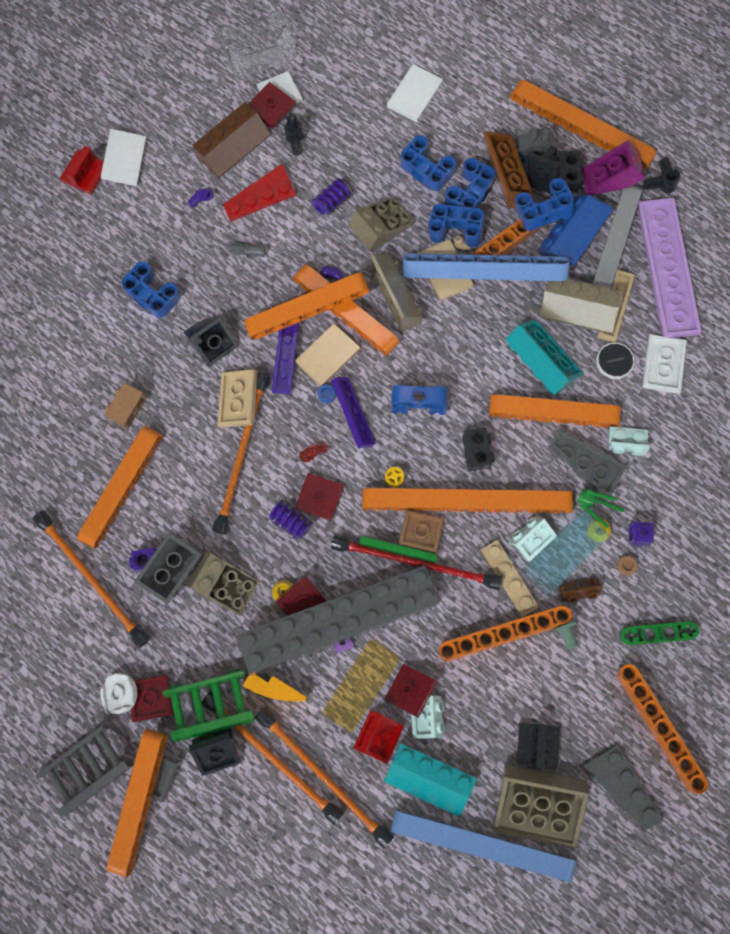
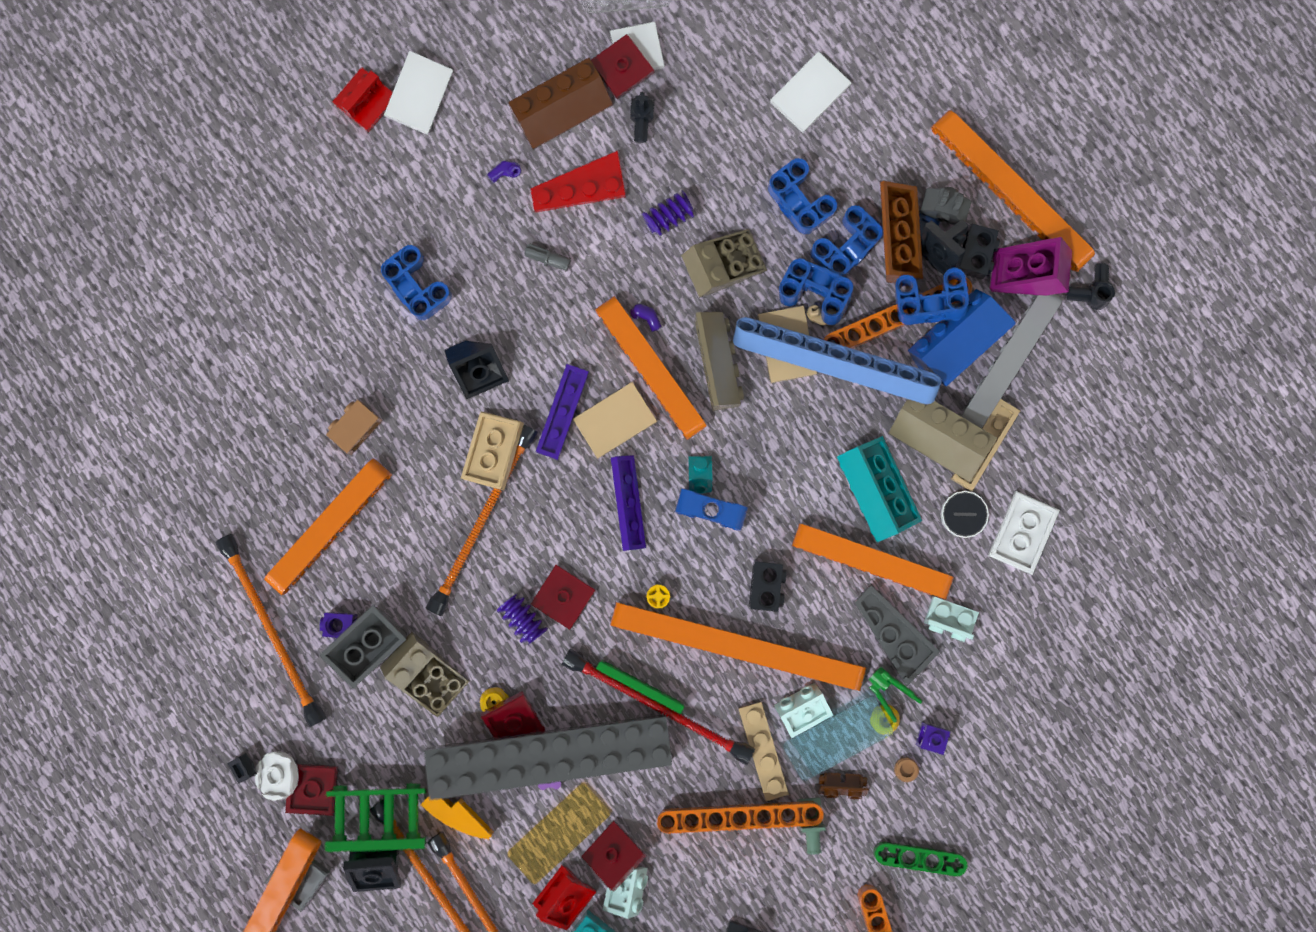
camera: 10 degrees right, 10 degrees up
(89, 694) = (242, 768): none -> black plate
(102, 778) = (238, 870): dark grey fence -> none
(306, 306) = (603, 356): orange beam -> none
(311, 452) = (565, 541): clear red arm -> none
(326, 393) = (601, 469): blue tile -> none
(403, 375) = (700, 474): none -> teal bracket
(421, 531) = (673, 671): medium nougat plate -> none
(668, 268) = (1065, 410): lavender plate -> none

